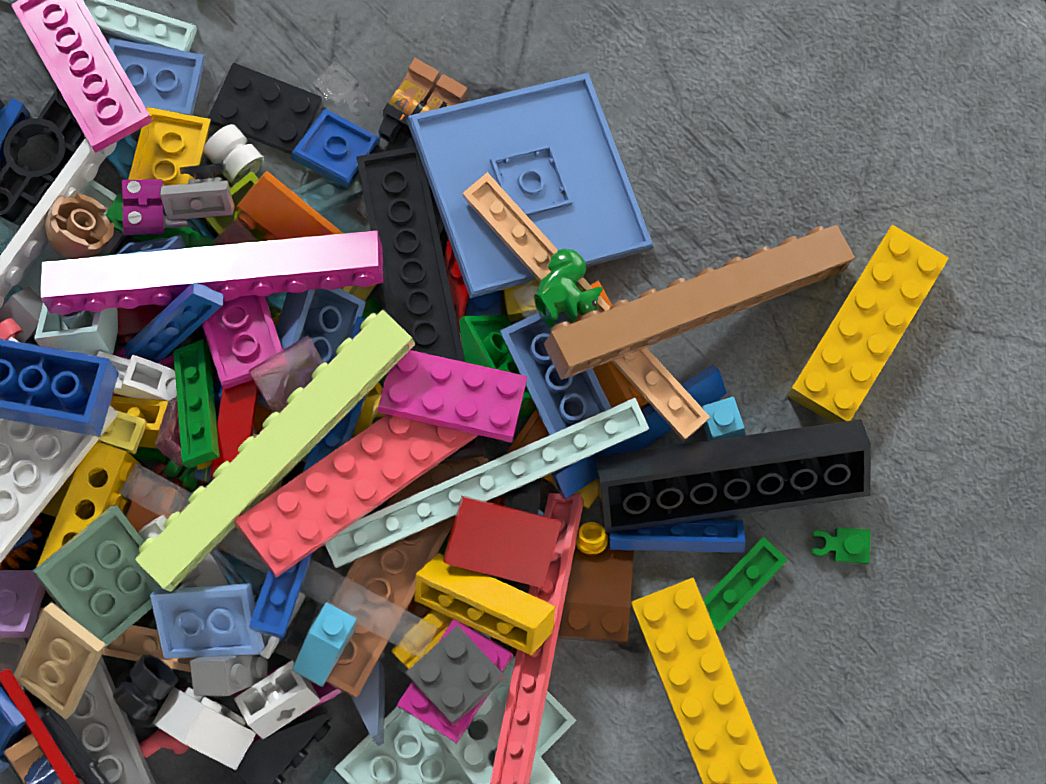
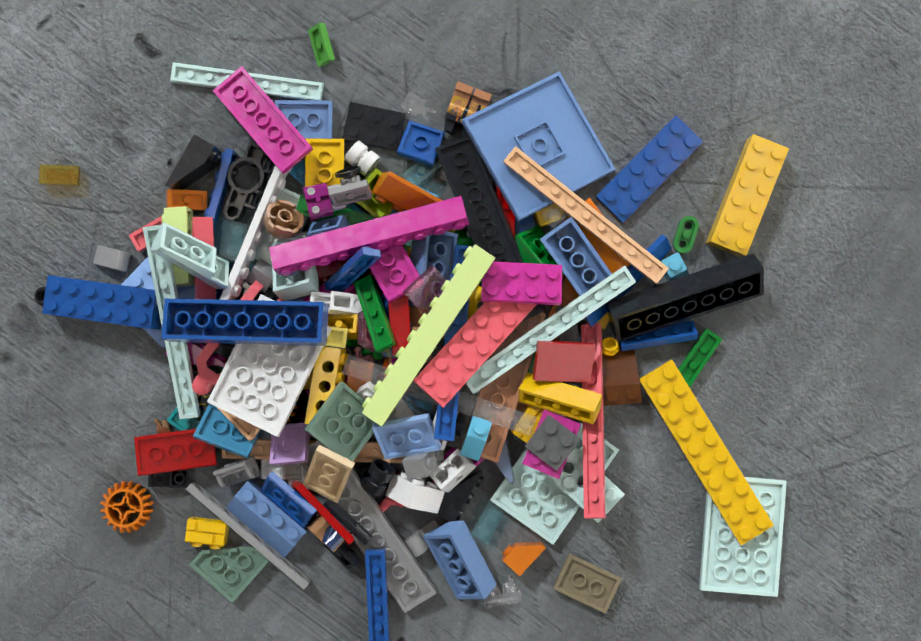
camera: 10 degrees left, 10 degrees up
(234, 234) = (375, 210): clear pink plate -> none
(558, 290) = (570, 210): green animal -> none
(697, 301) = (649, 202): medium nougat brick -> none
(740, 228) = (649, 169): none -> blue plate
(753, 374) = (685, 235): none -> green plate
(848, 545) = (753, 324): green plate -> none

